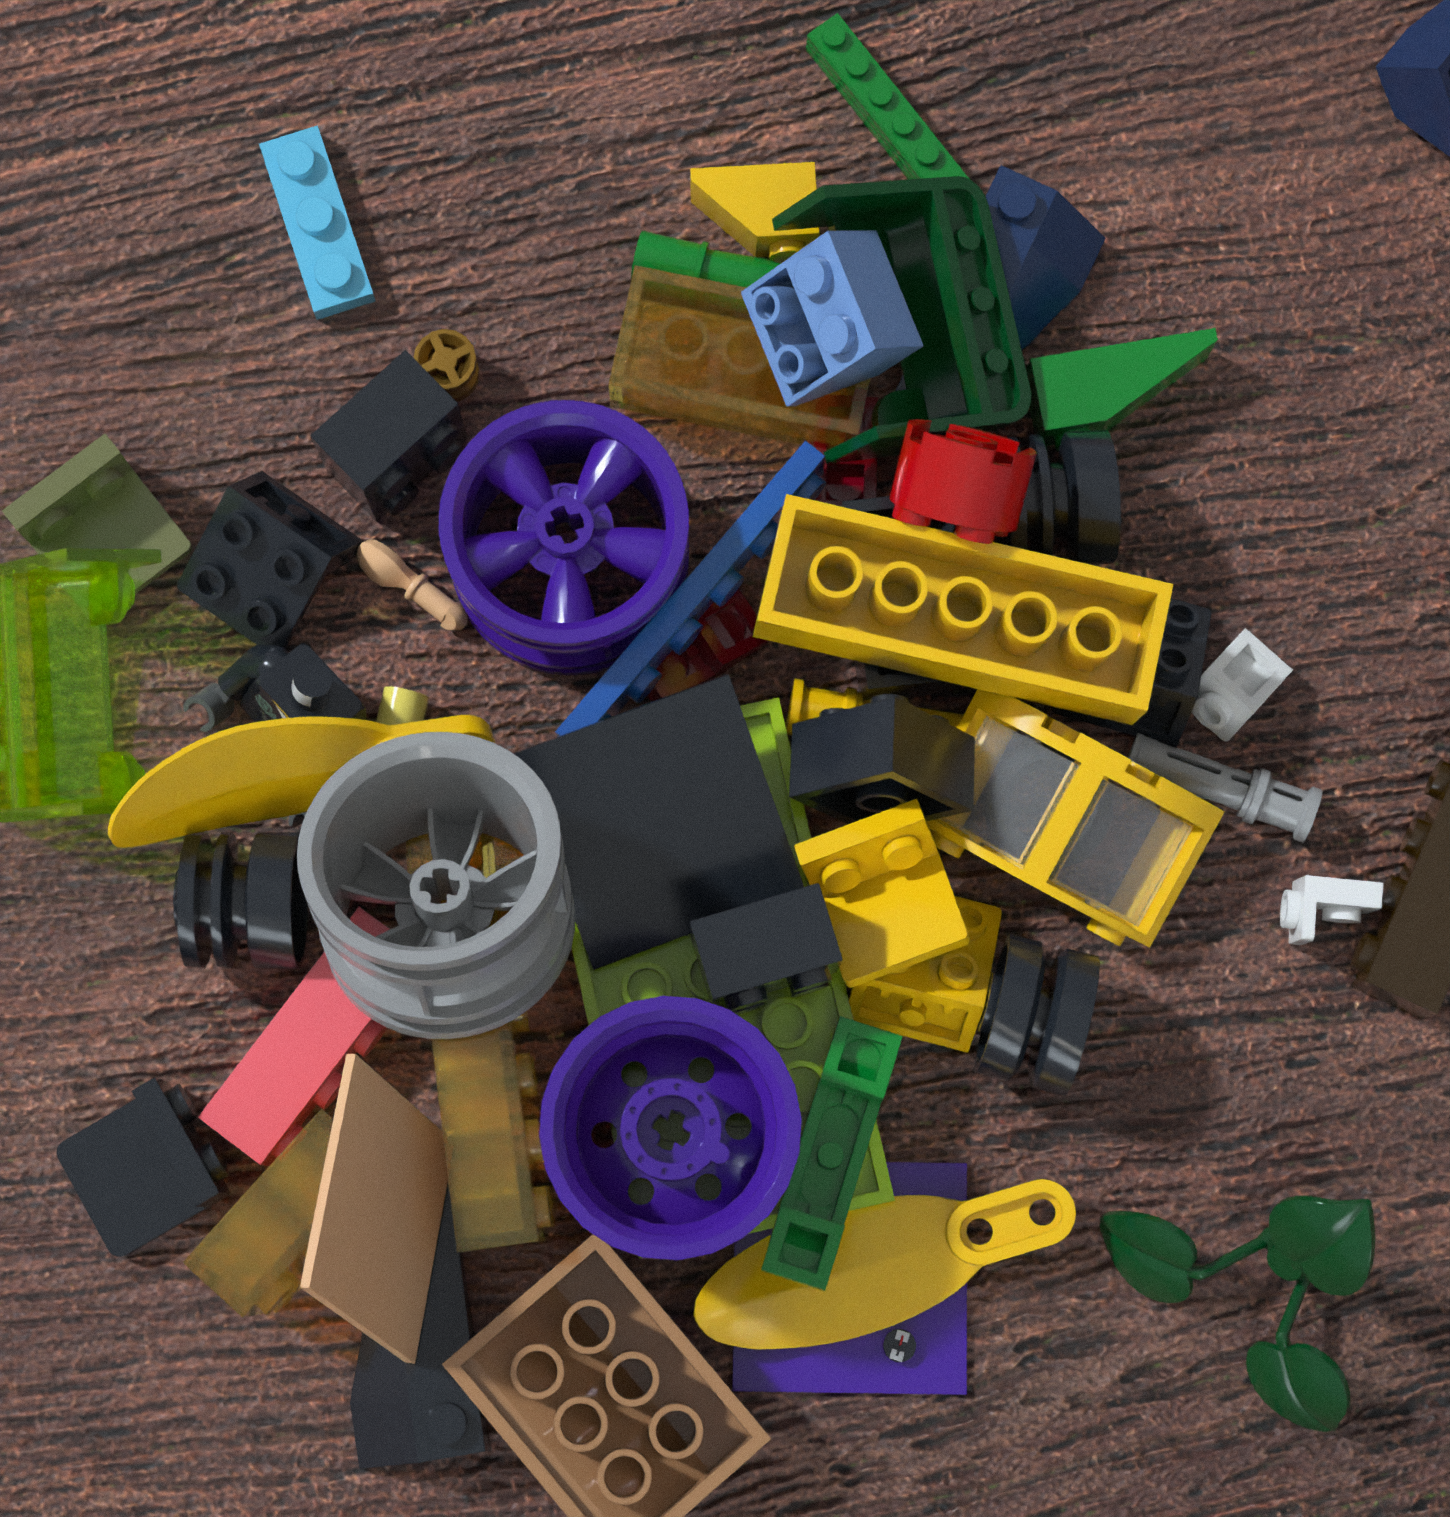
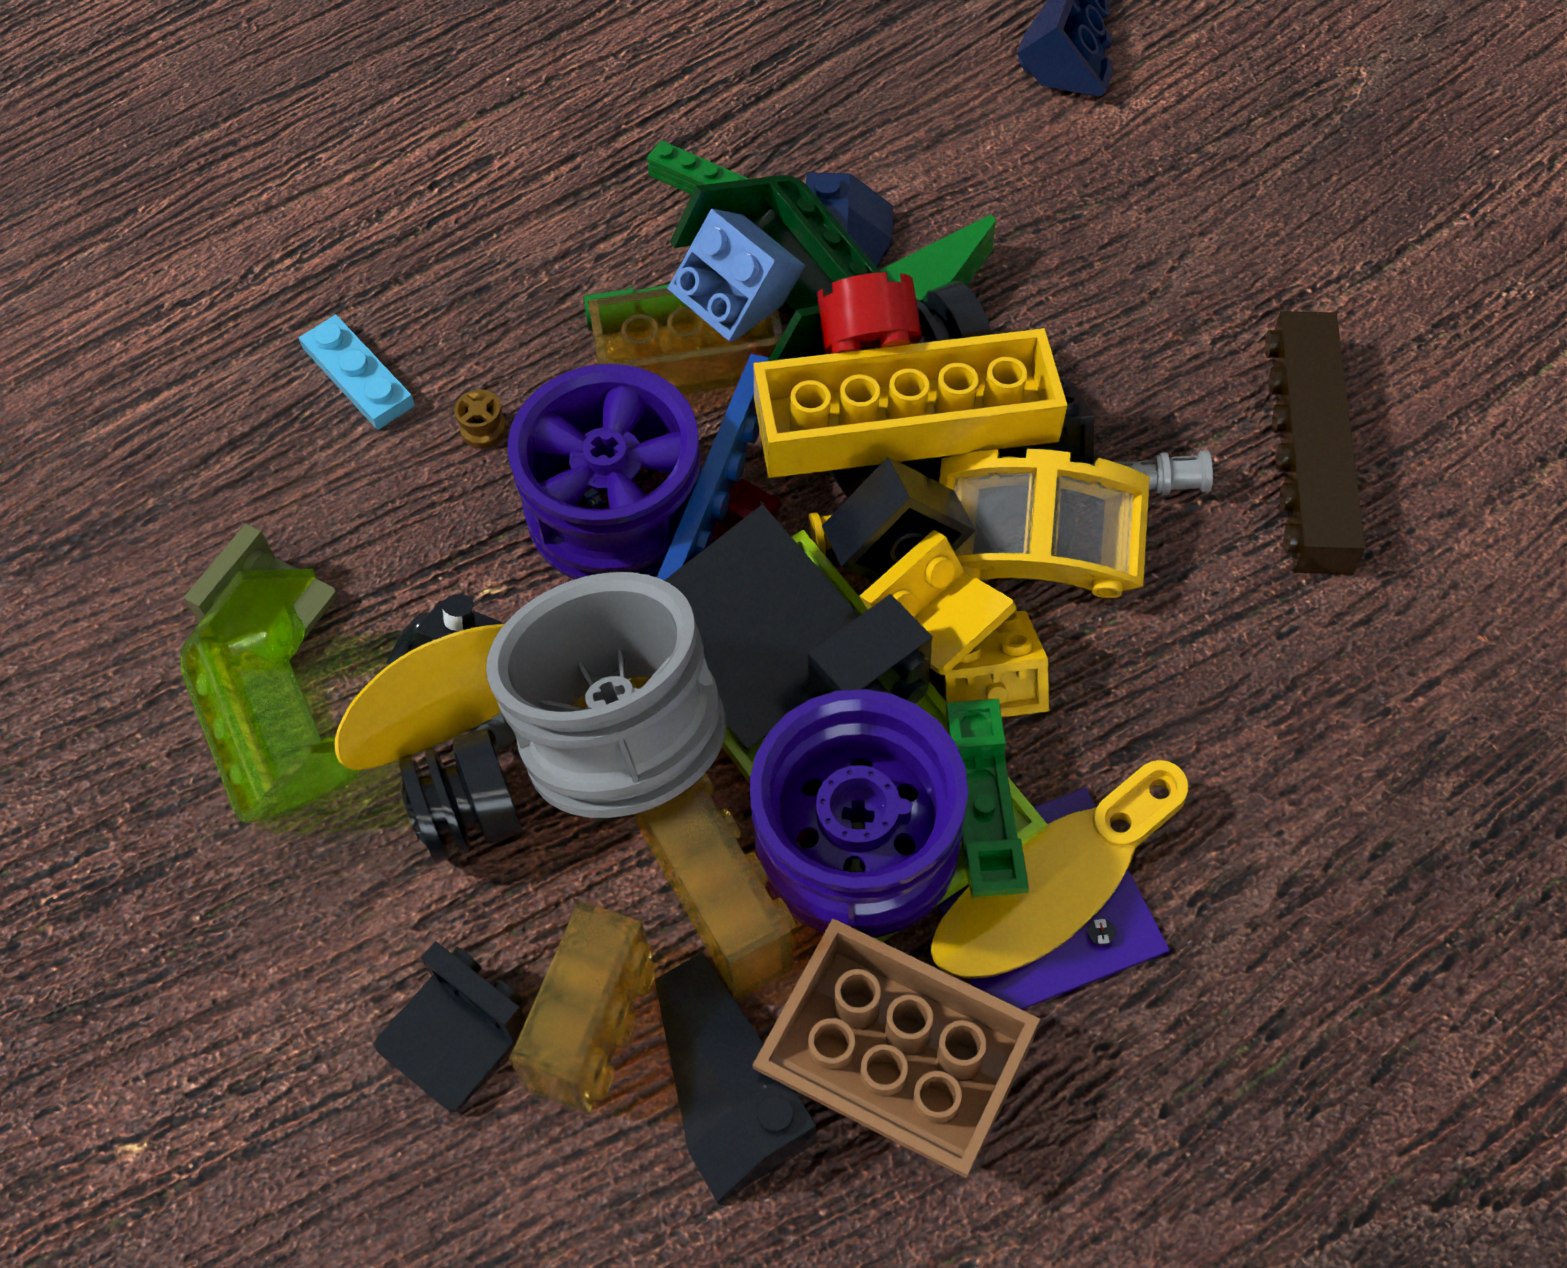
camera: 15 degrees left, 20 degrees down
(264, 559) = (389, 579): black bracket -> none
(294, 1063) = (549, 880): coral brick -> none
(377, 1212) = (654, 956): light nougat piece -> none
(389, 570) = (486, 555): light nougat piece -> none
(391, 437) = (456, 462): black brick -> none
(747, 199) = (645, 256): yellow slope -> none
(1027, 1012) = (1089, 650): black wheel -> none
(1238, 685) = (1115, 415): white bracket -> none
(1305, 1242) = (1372, 698): dark green plant -> none
(1337, 898) = (1249, 515): white bracket -> none

